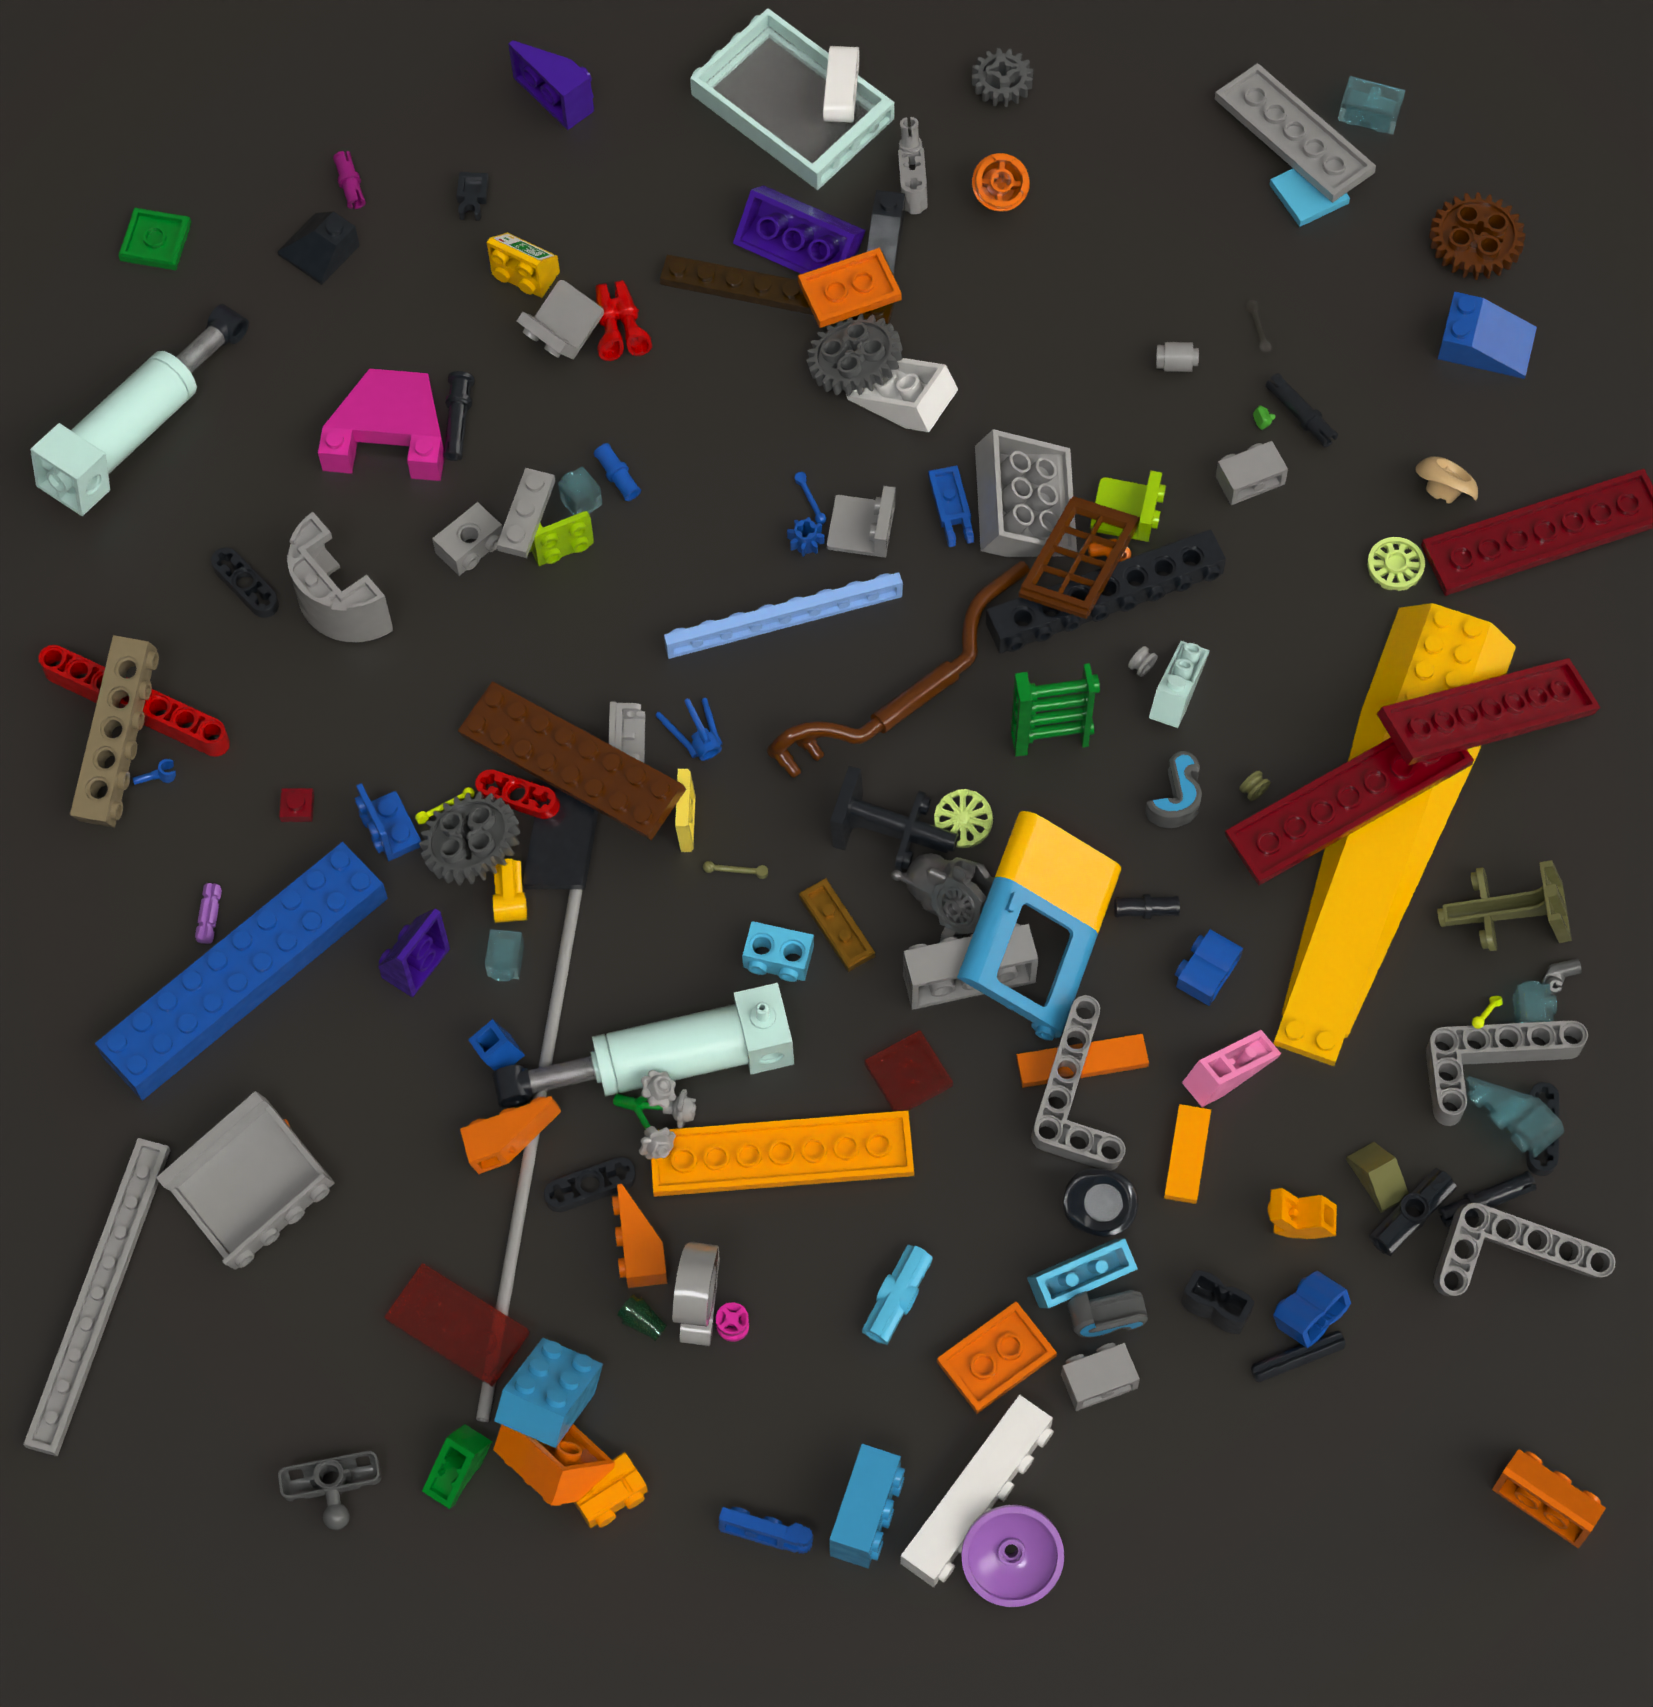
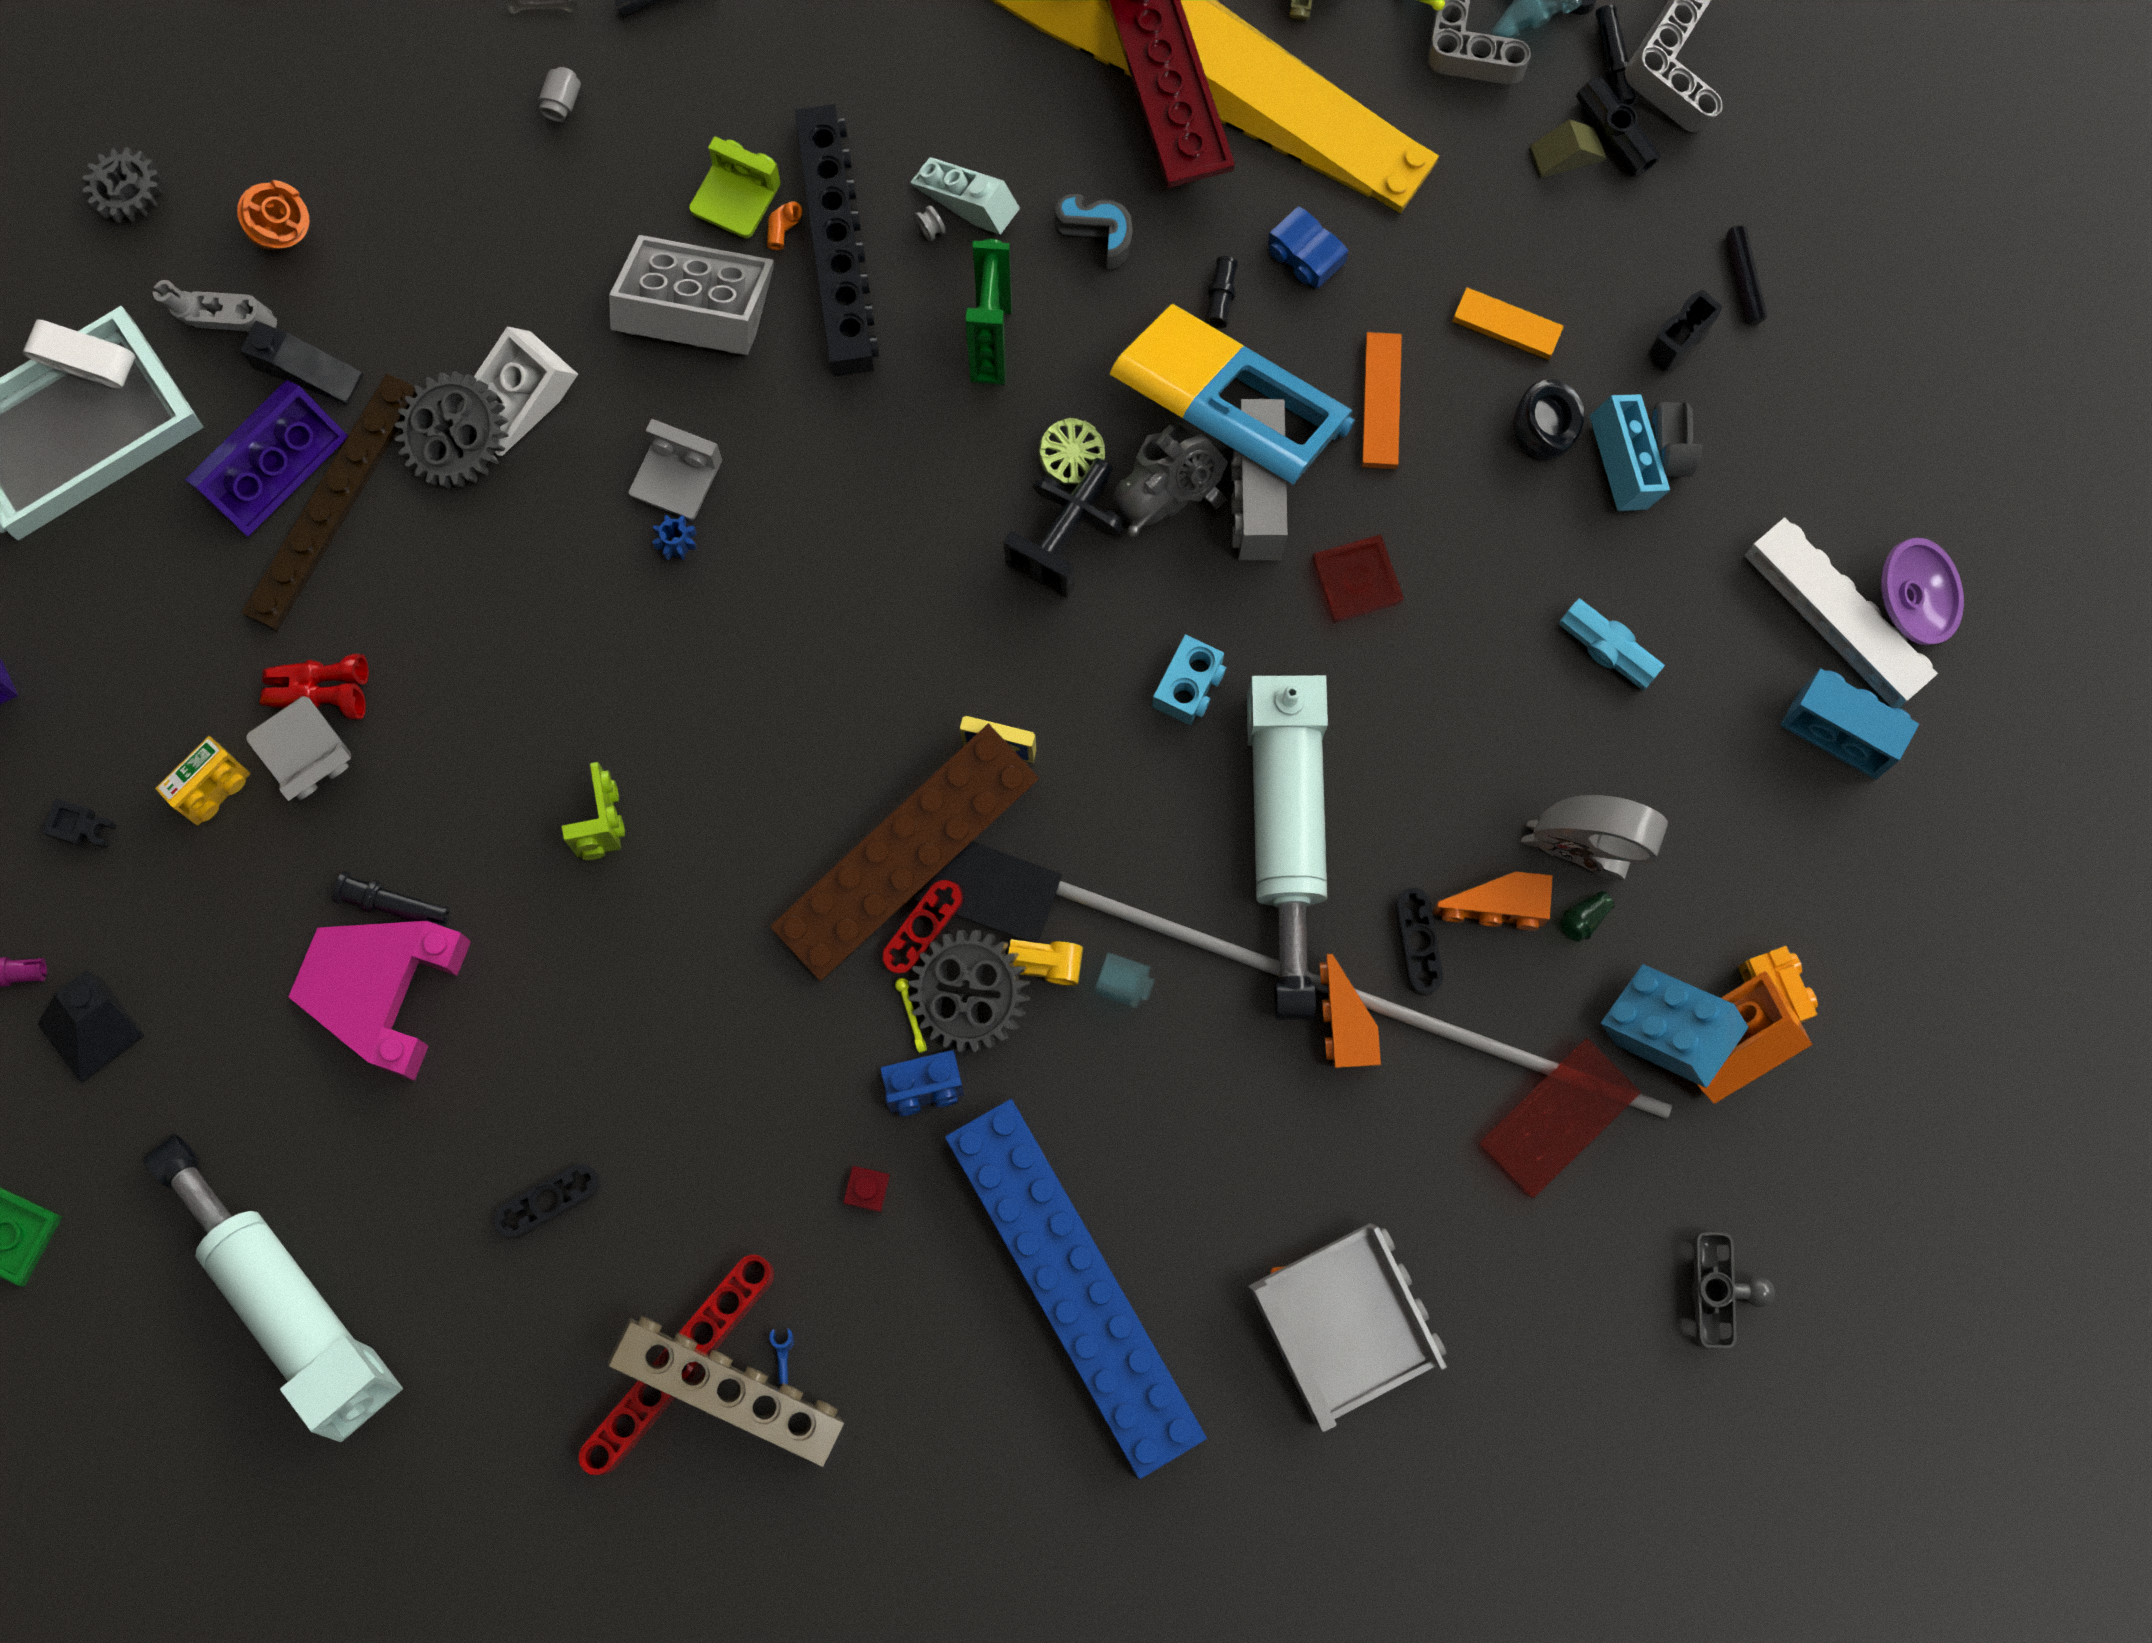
camera: 80 degrees left, 10 degrees up
(96, 1298) = (1446, 1528): light grey plate -> none
(208, 913) = (984, 1319): medium lavender axle -> none
(346, 616) = (610, 1105): light grey cylinder -> none
(416, 953) = (1103, 1079): dark purple slope -> none
(456, 1464) = (1724, 1146): green arch -> none
(472, 524) = (551, 905): light grey brick -> none
(496, 1046) = (1241, 1009): blue brick -> none
(526, 512) = (575, 832): light grey plate -> none
(579, 491) = (543, 777): clear light blue brick -> none
(617, 472) = (525, 730): blue pin -> none
(628, 729) = (874, 789): light grey hinge -> none
(660, 1093) = (1352, 830): light grey plant -> none
(704, 743) = (907, 703): blue plant -> none
(761, 871) = (1080, 681): olive hinge -> none
(766, 1530) = (1848, 833): blue hinge -> none
(783, 615) = (768, 600): light blue plate -> none
(785, 1153) = (1426, 731): light orange plate -> none
(800, 479) = (591, 529): blue hinge -> none
(837, 925) = (1165, 613): pearl gold tile -> none
(849, 287) = (363, 412): orange plate -> none
(907, 701) = (913, 470): reddish brown piece -> none
(951, 502) = (676, 373): blue hinge -> none
(996, 1357) = (1698, 562): orange plate -> none
(1063, 602) = (841, 284): reddish brown piece -> none
(1066, 1089) = (1421, 413): light grey beam -> none
(1099, 1375) = (1738, 465): light grey brick -> none
(1230, 1067) = (1427, 256): bright pink slope -> none
(1251, 472) = (728, 56): light grey brick -> none
(1255, 785) = (1107, 150): olive bush -> none
(1262, 417) = (659, 30): bright green rock -> none
(1302, 1217) = (1604, 228): light orange brick -> none
(1311, 1308) = (1706, 245): blue brick -> none
(1549, 1497) = (1939, 81): orange slope -> none

